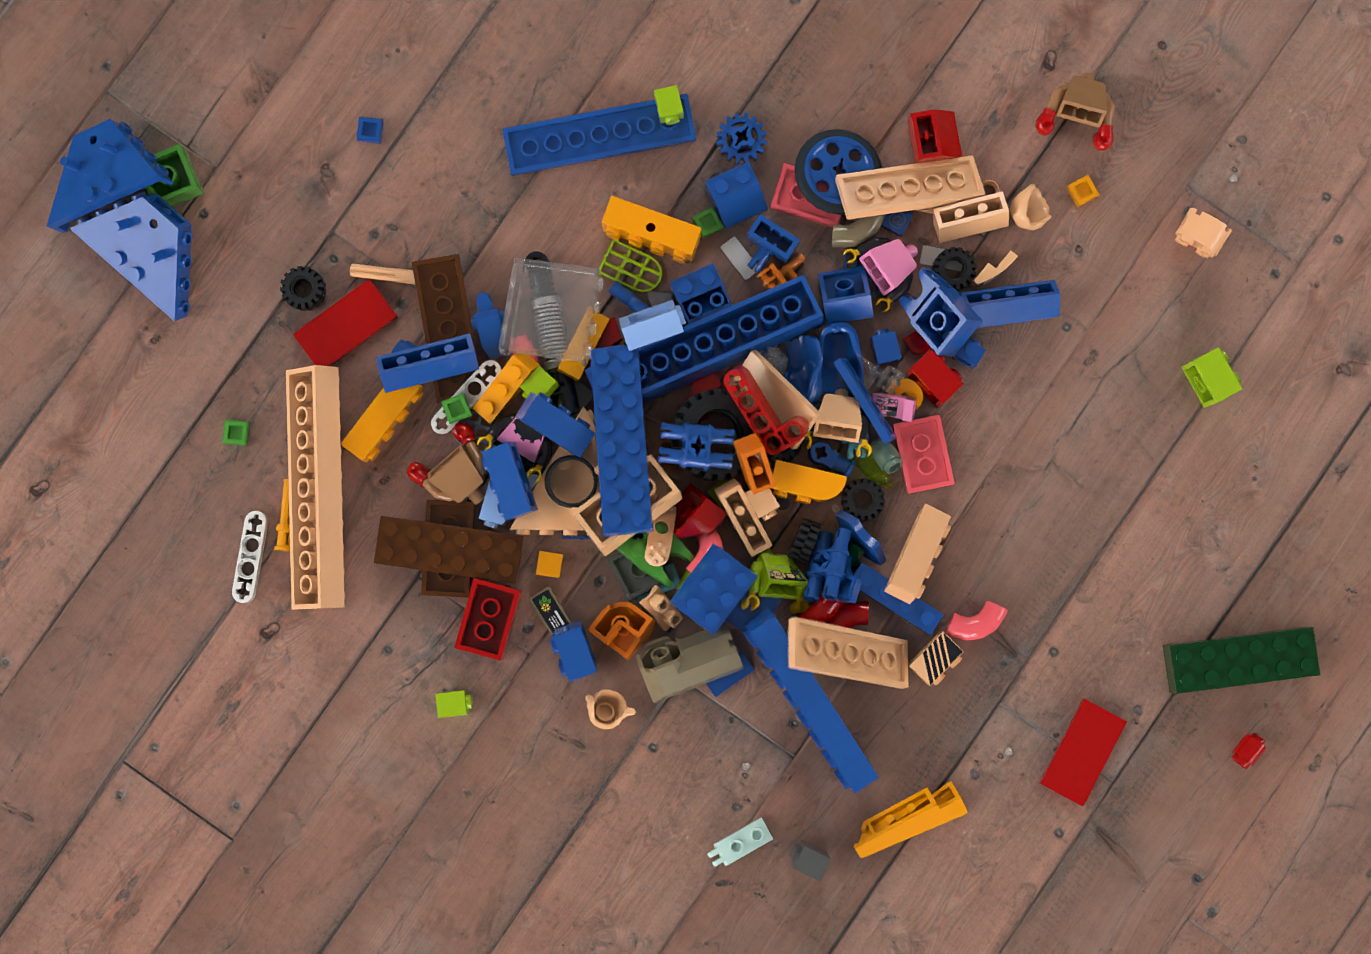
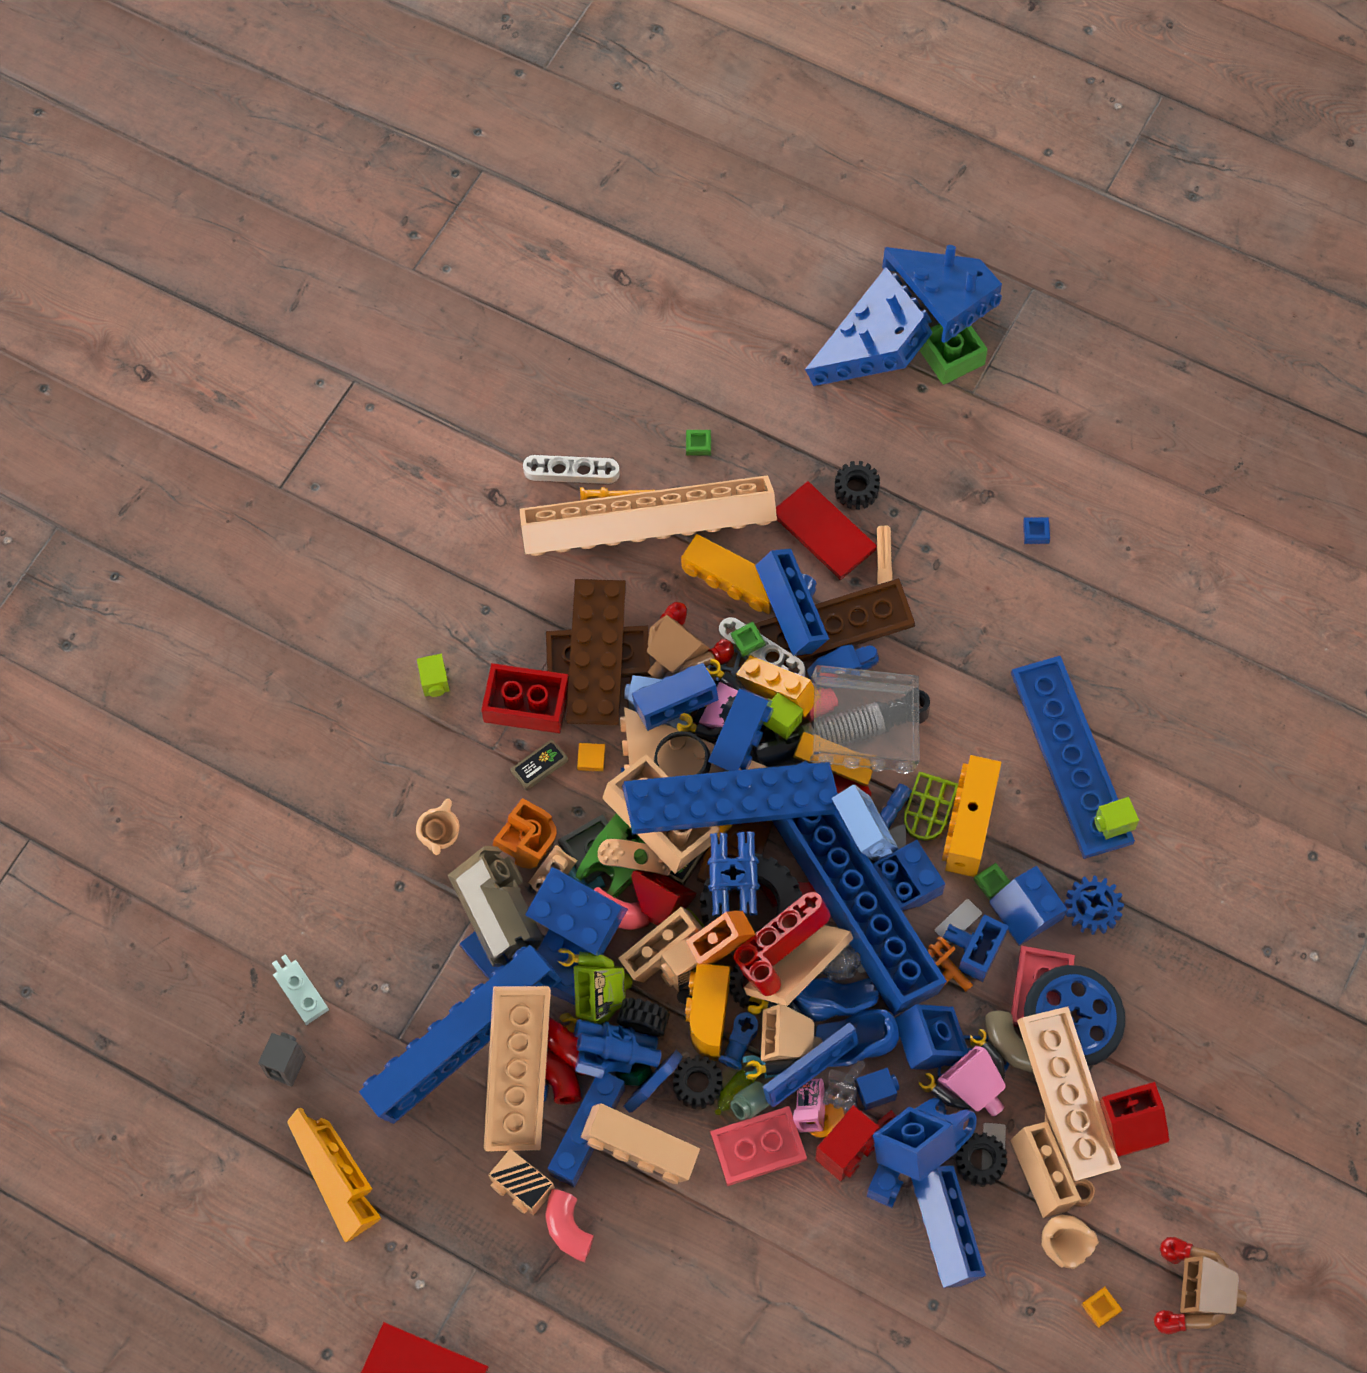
camera: 85 degrees right, 20 degrees down
(574, 650) = (498, 784): blue brick -> none
(897, 222) = (1027, 1090): blue tile -> none
(990, 272) = (980, 1199): light nougat slope -> none

